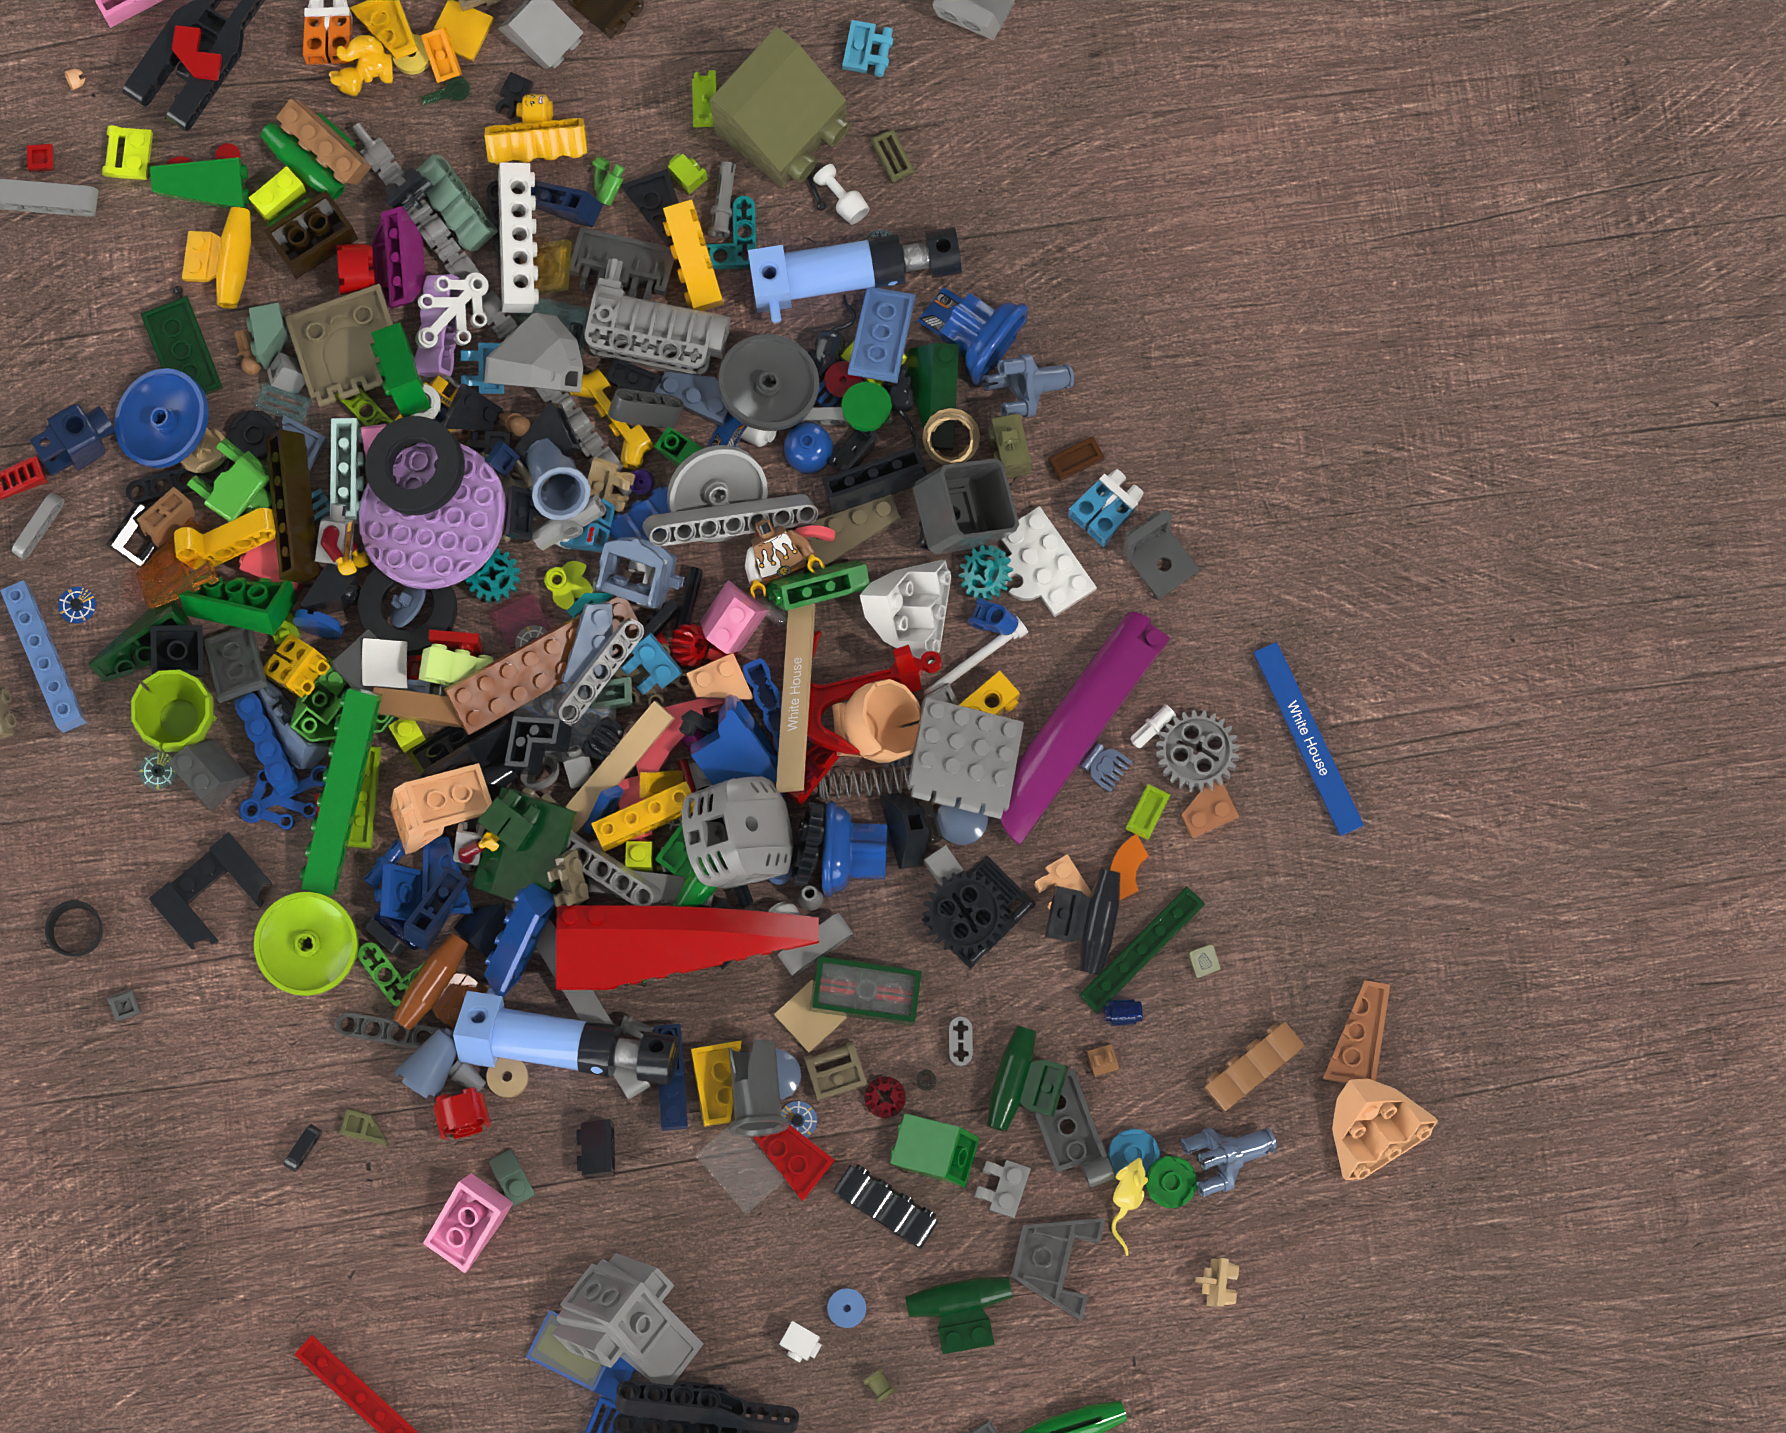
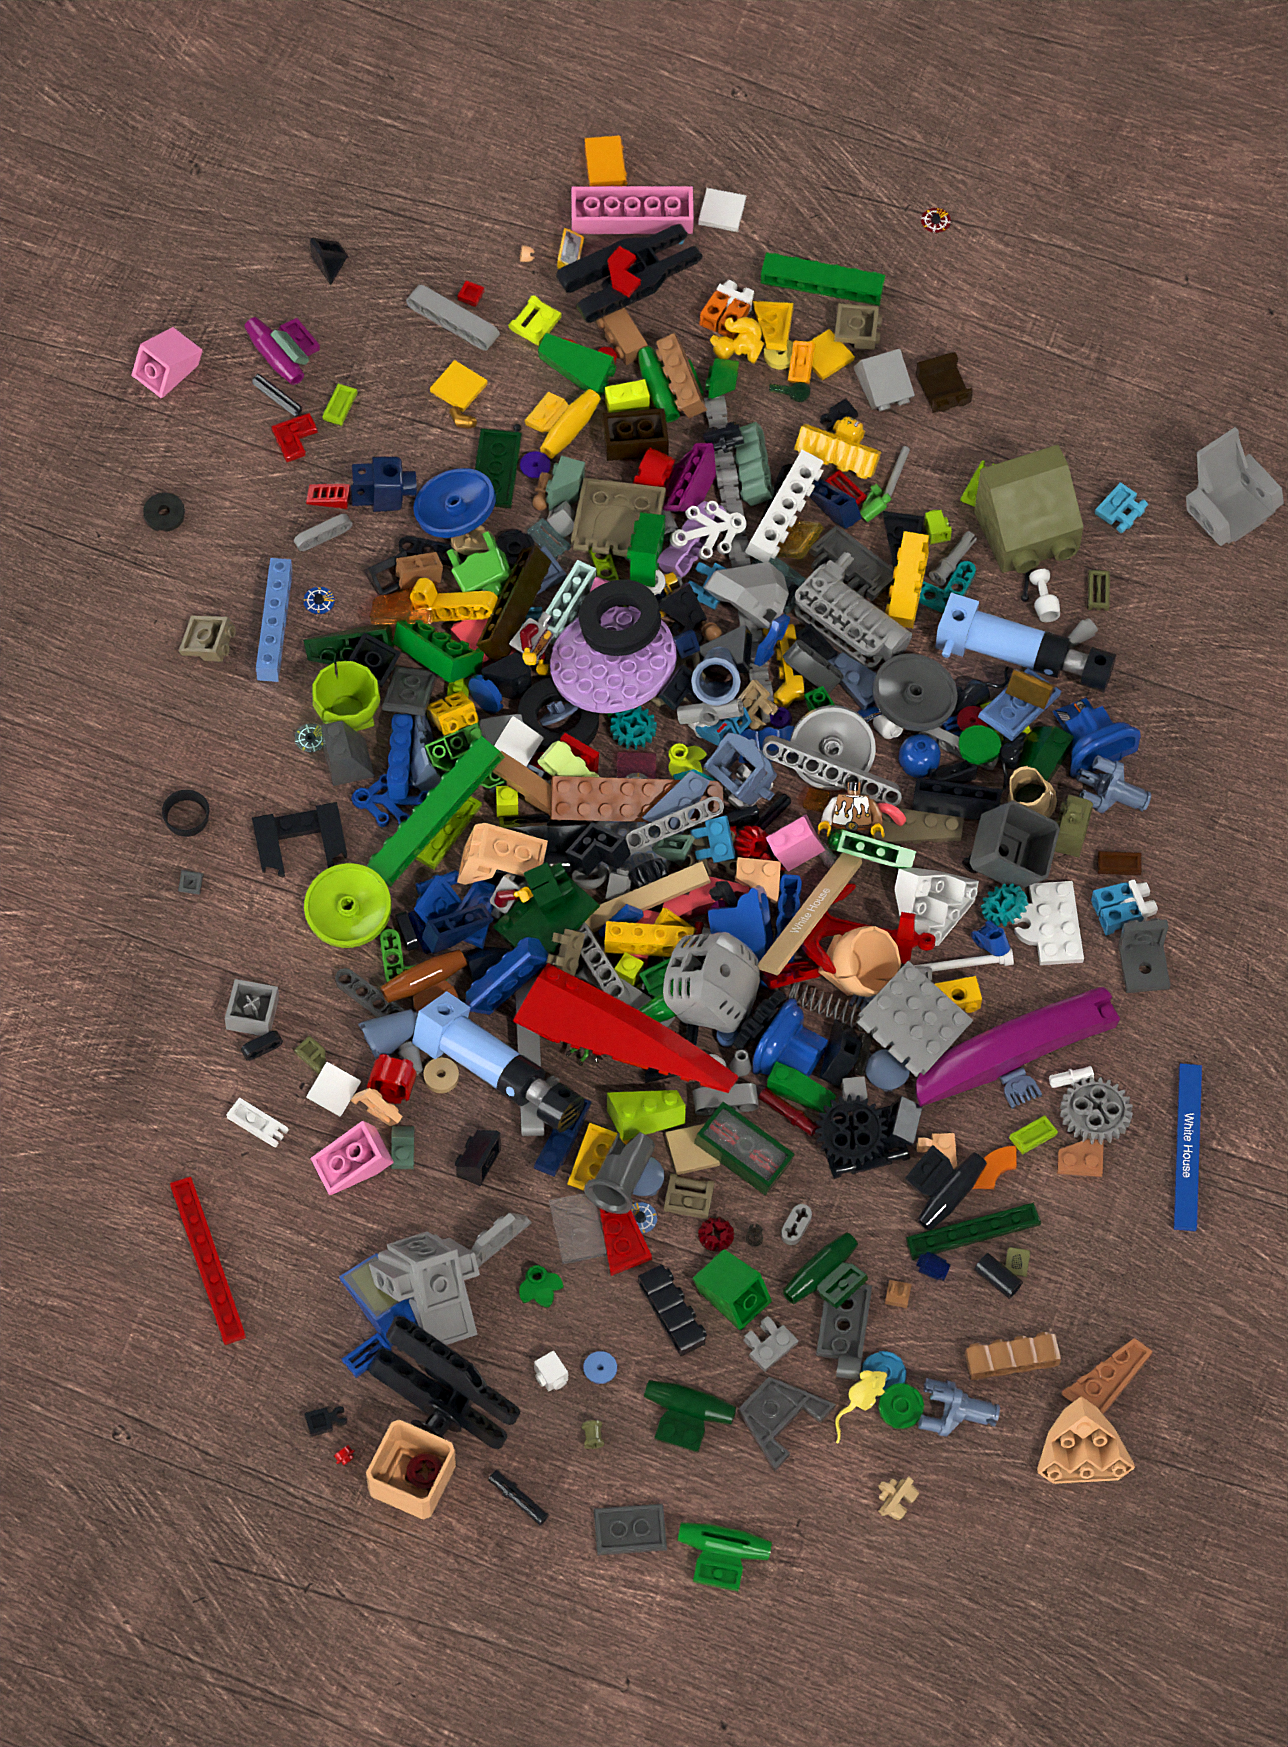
camera: 25 degrees right, 15 degrees down
(87, 274) = (458, 386): none -> yellow tile
(115, 313) = (462, 421): none -> pearl gold arm
(119, 49) = (570, 248): none -> slope
(221, 324) = (534, 464): none -> dark purple piece
(233, 122) = (623, 335): none -> medium nougat brick
(270, 1114) = (251, 1007): none -> light grey brick
(345, 1235) = (256, 1122): none -> white hinge
(368, 116) = (722, 377): none -> green slope
(404, 1154) = (333, 1089): none -> white sticker
(407, 322) = (670, 525): none -> light grey cone
(454, 1148) = (377, 1106): none -> light nougat wing
(568, 170) = (833, 481): none -> red tile
(587, 414) = (776, 633): none -> blue tile
(609, 130) = (896, 471): none -> light grey bar
(668, 1219) = (498, 1236): none -> light grey wing
(728, 555) = (816, 799): none -> clear orange tile
(740, 1257) = (540, 1290): none -> green plate
(742, 1006) = (645, 1111): none -> lime wedge
(885, 311) = (1029, 689): none -> pearl gold slope
(886, 891) = (798, 1088): none -> green slope
(887, 922) = (789, 1112): none -> dark red pin
(902, 216) = (1083, 631): none -> light grey cone
(1010, 872) = (902, 1122): none -> hinge
(1194, 987) = (998, 1275): none -> black pin

